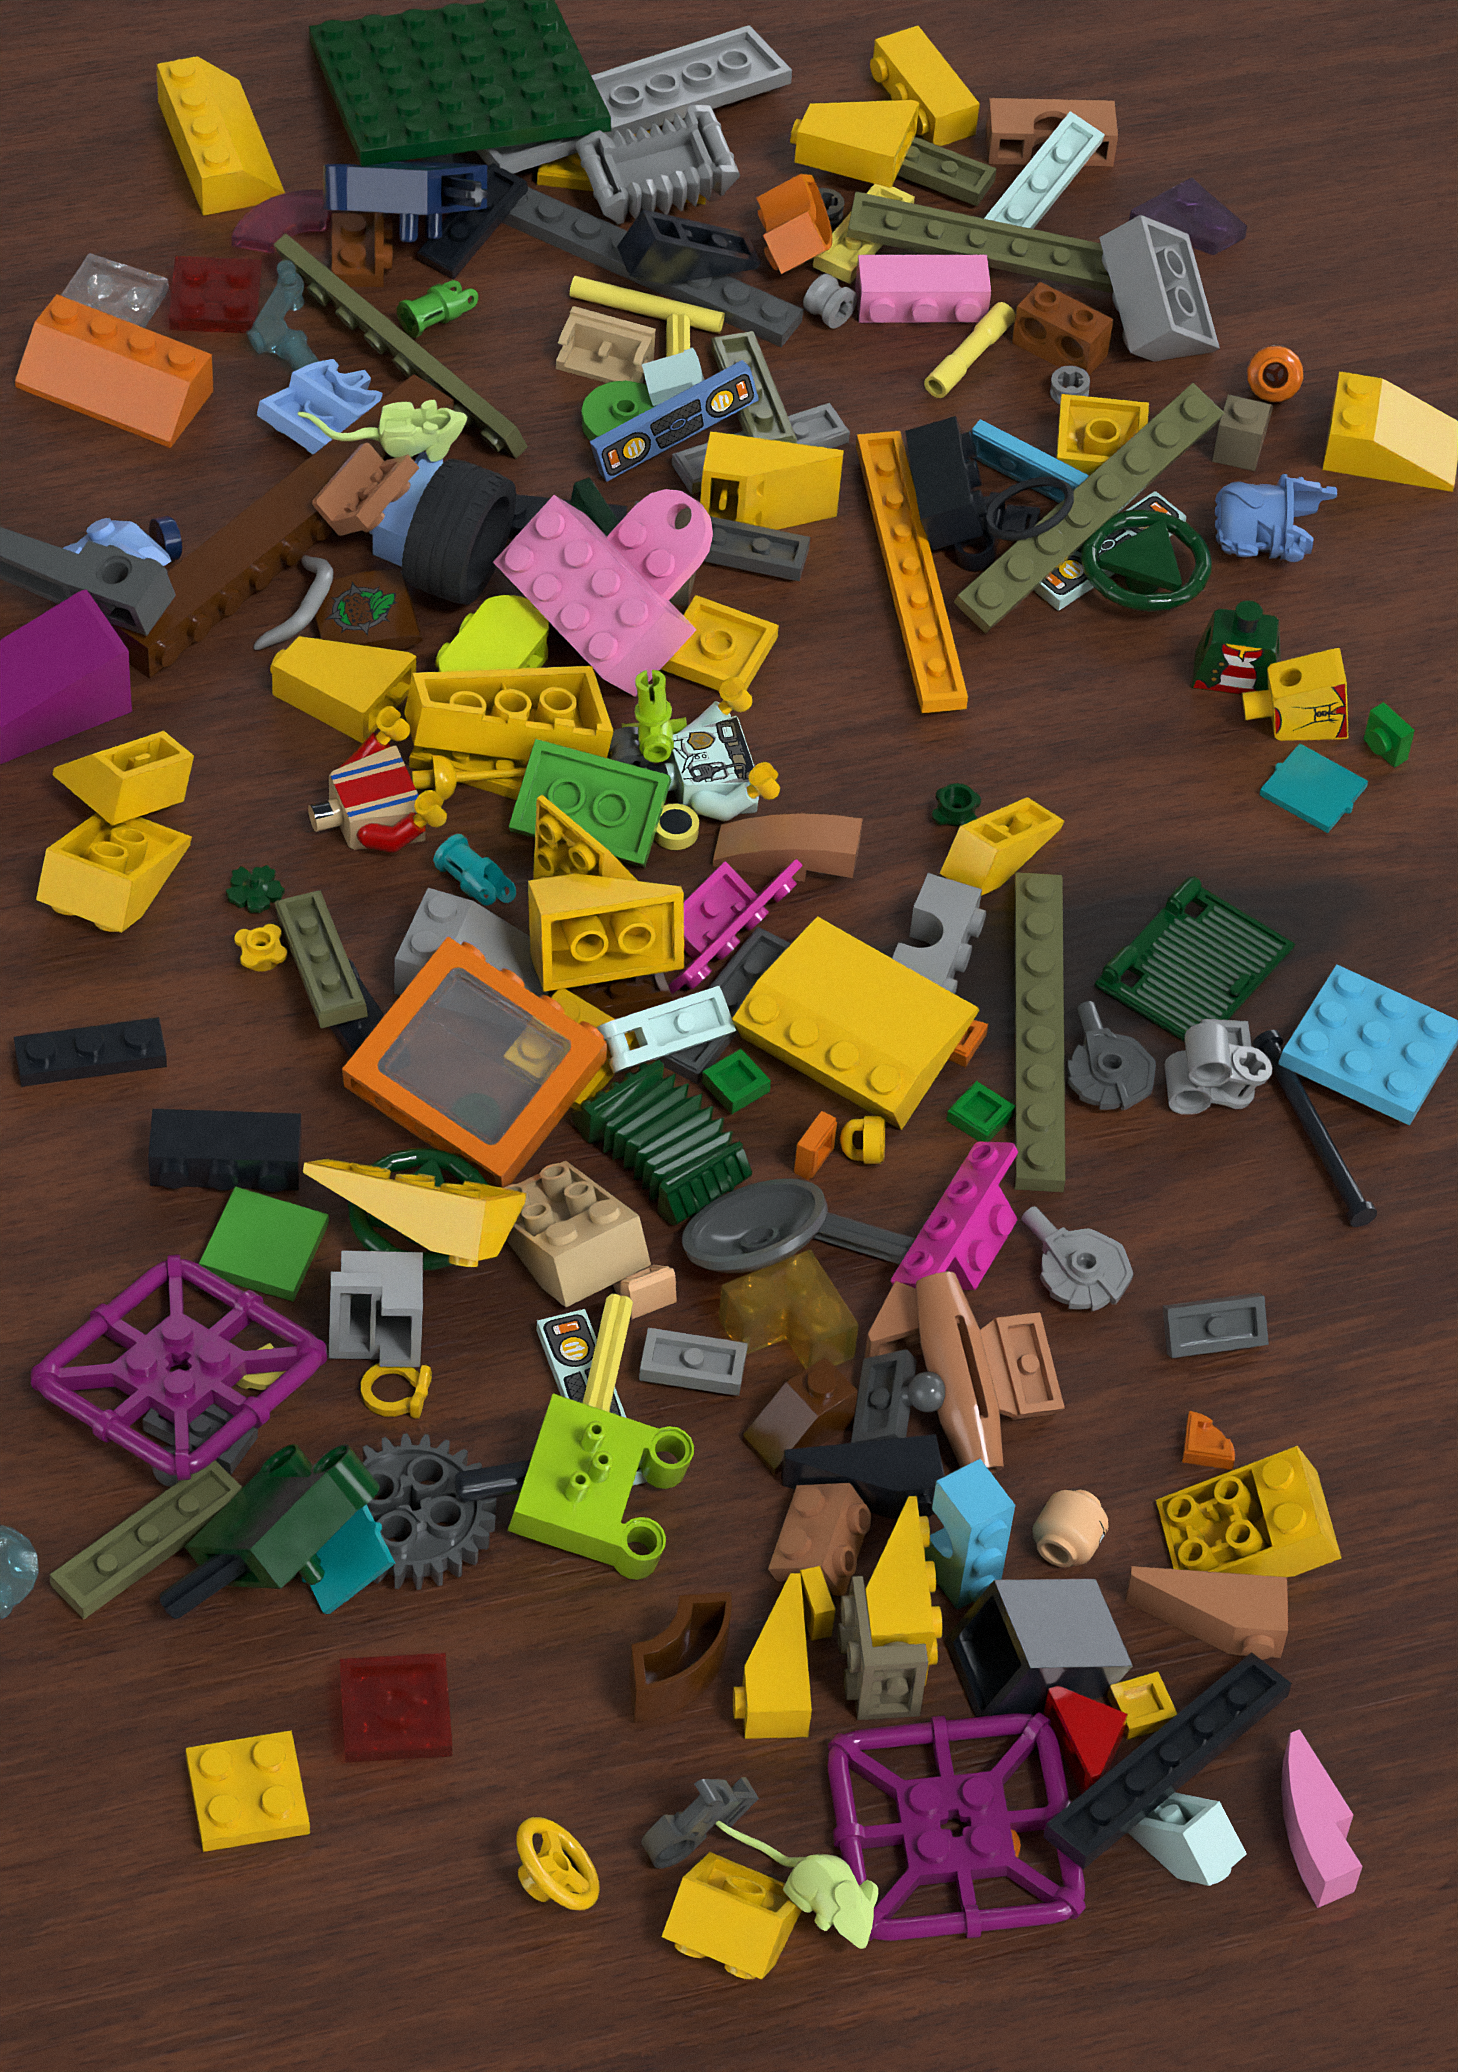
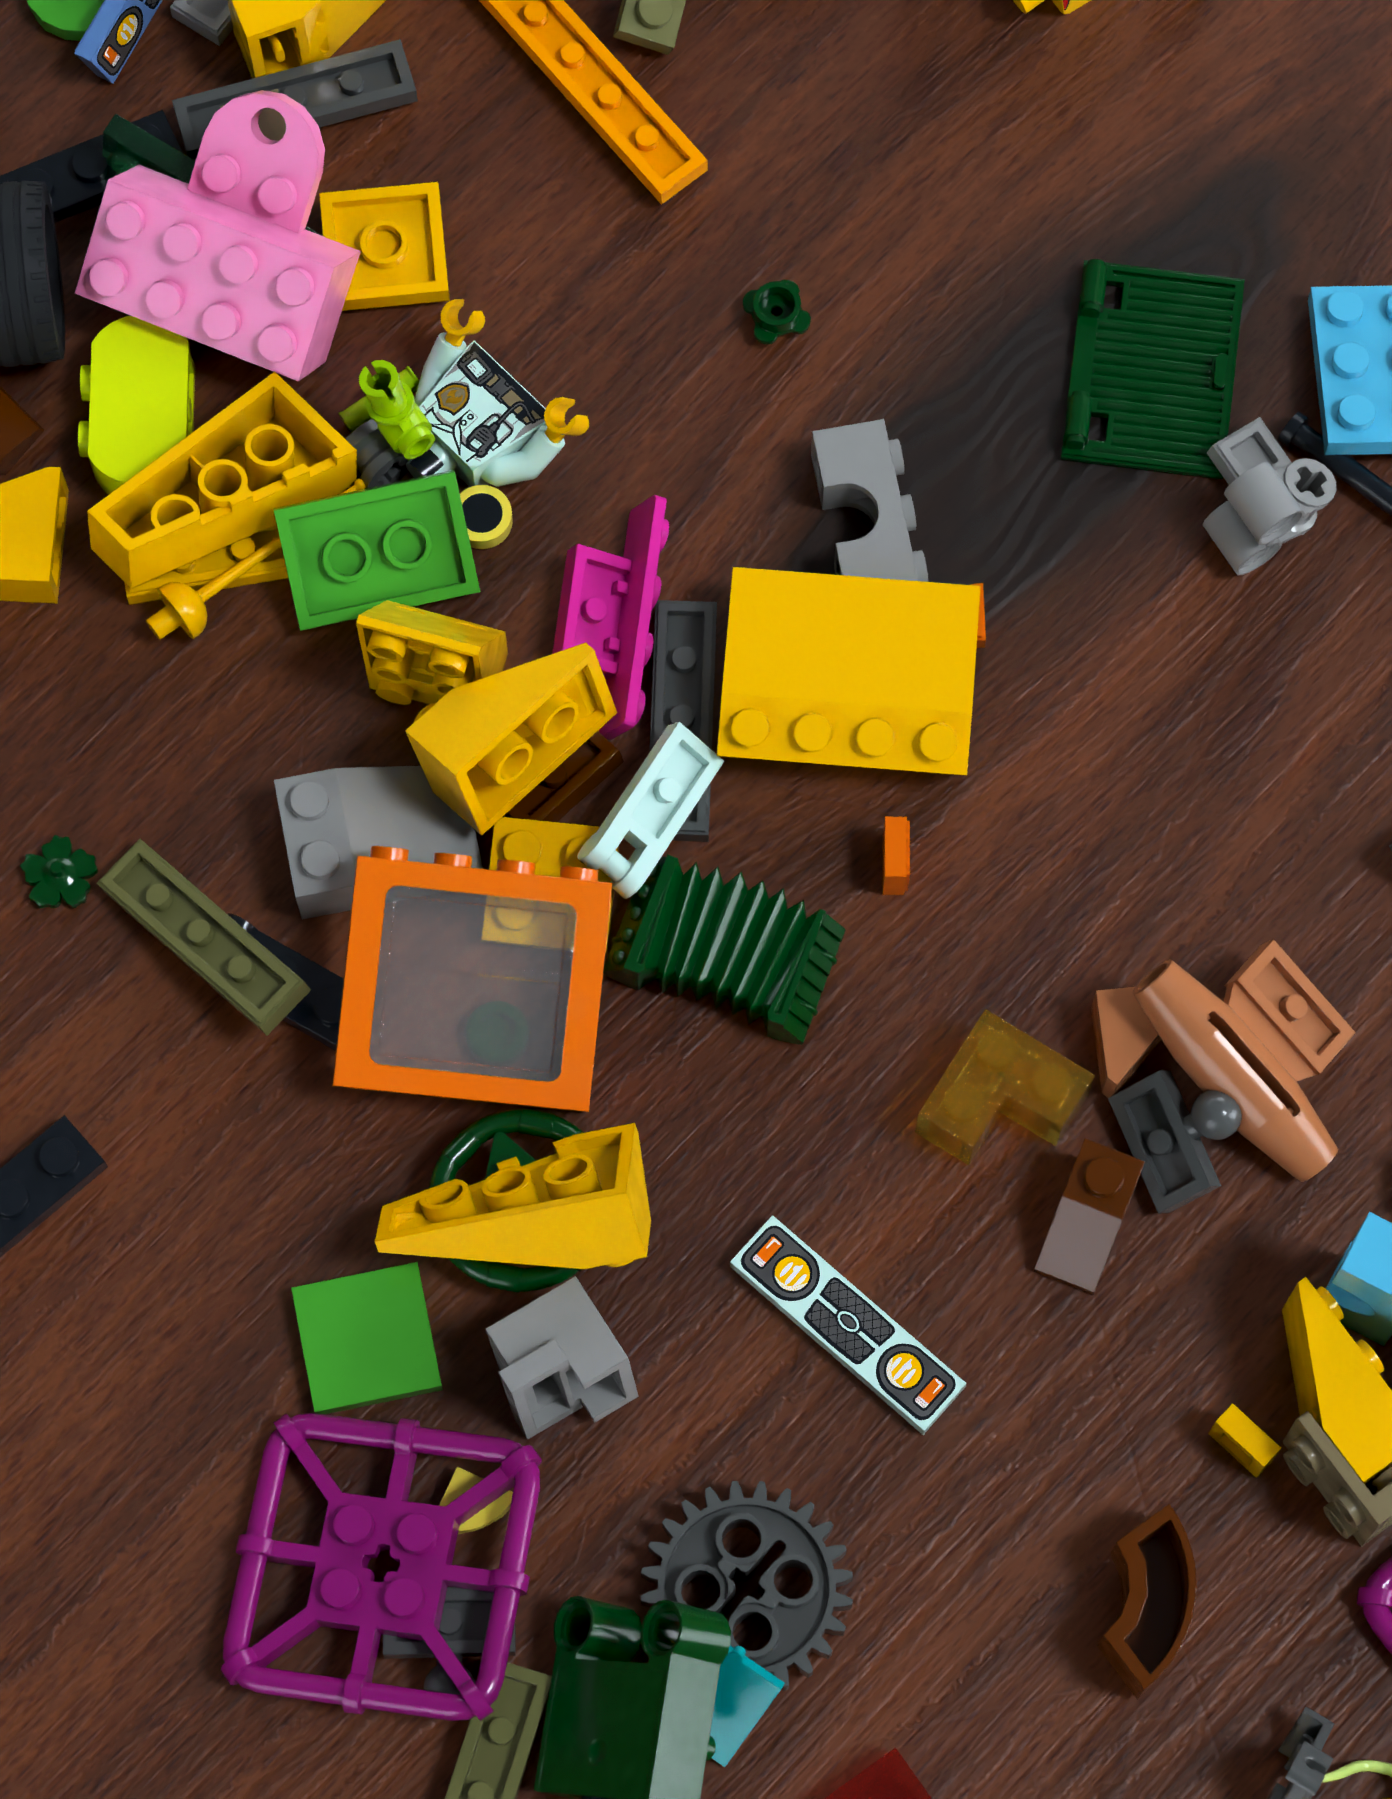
camera: 25 degrees left, 20 degrees up
(225, 1149) = (253, 1250): black brick -> none
(261, 957) = (119, 970): yellow plate -> none
(375, 795) = (128, 679): torso -> none
(407, 1405) = (656, 1446): yellow piece -> none
(476, 874) = (300, 714): teal piece -> none
(575, 1234) = (700, 1124): tan slope -> none
(582, 1481) = (916, 1451): lime piece -> none
(608, 1352) = (841, 1273): light yellow axle -> none
(648, 1289) = (817, 1144): light nougat slope -> none
(693, 1361) = (930, 1212): light grey plate -> none
(736, 1081) = (756, 820): green plate -> none
(755, 1226) = (882, 995): dark grey dish -> none
(773, 841) = (627, 471): nougat slope -> none
(776, 1675) = (1257, 1553): yellow slope -> none
(822, 1530) = (1197, 1350): nougat bracket -> none
(864, 1238) = (1014, 940): dark grey axle -> none
(873, 1139) = (953, 811): yellow tile -> none
(878, 1470) = (1218, 1241): black slope -> none
(967, 1221) = (1117, 867): dark pink bracket -> none
(980, 1113) = (1040, 701): green tile -> none
(999, 844) = (859, 338): yellow slope -> none
(1039, 1033) = (1039, 557): olive plate -> none
(1080, 1264) = (1268, 839): light grey piece -> none
(1109, 1066) = (1148, 563): dark grey piece -> none
(1313, 788) = (1144, 58): teal piece -> none

